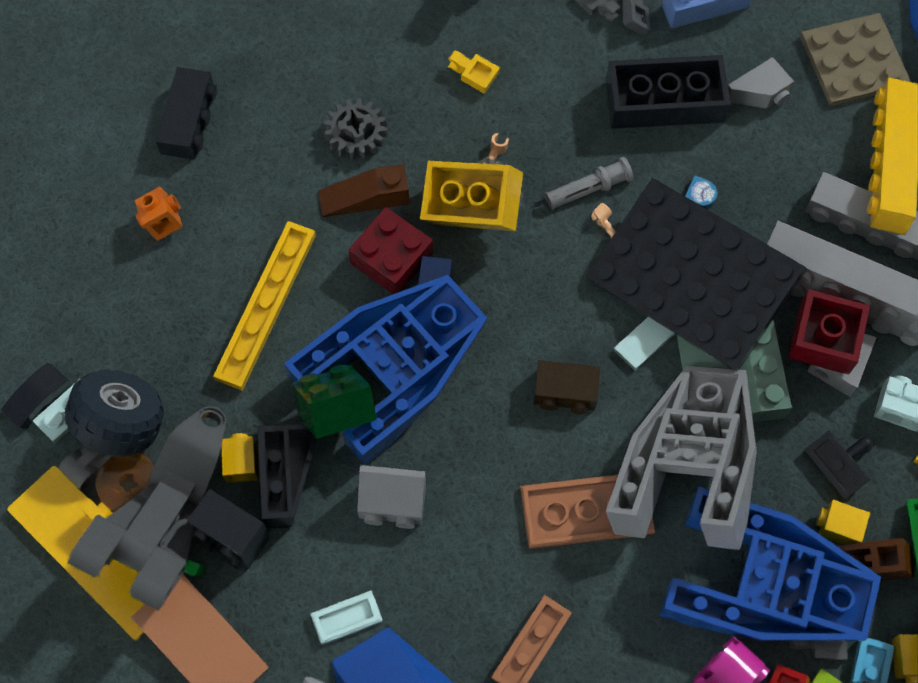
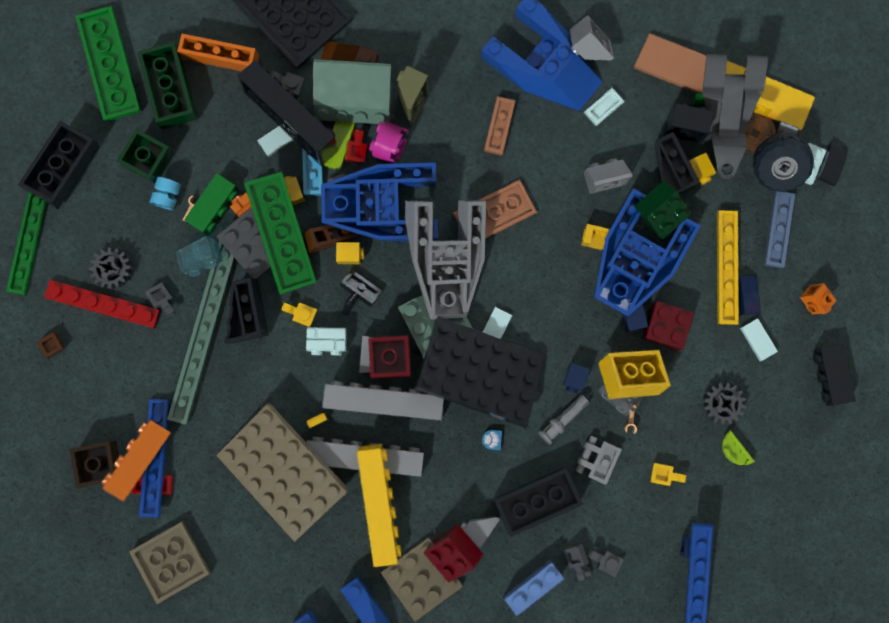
camera: 160 degrees right, 15 degrees up
(164, 328) = (779, 229): none -> sand blue plate
(252, 257) = (748, 295): none -> dark blue slope
(266, 195) = (758, 340): none -> light aqua tile
(366, 69) = (734, 450): none -> lime plate
(366, 192) = (699, 362): reddish brown slope -> none
(447, 417) = (594, 236): none -> yellow panel
(552, 229) = (575, 378): none -> dark blue brick
(554, 112) = (603, 463): none -> light grey plate
(566, 386) = (532, 279): dark brown brick -> none
(602, 213) = (549, 400): light nougat hand -> none
(807, 62) = (453, 553): none -> dark red brick

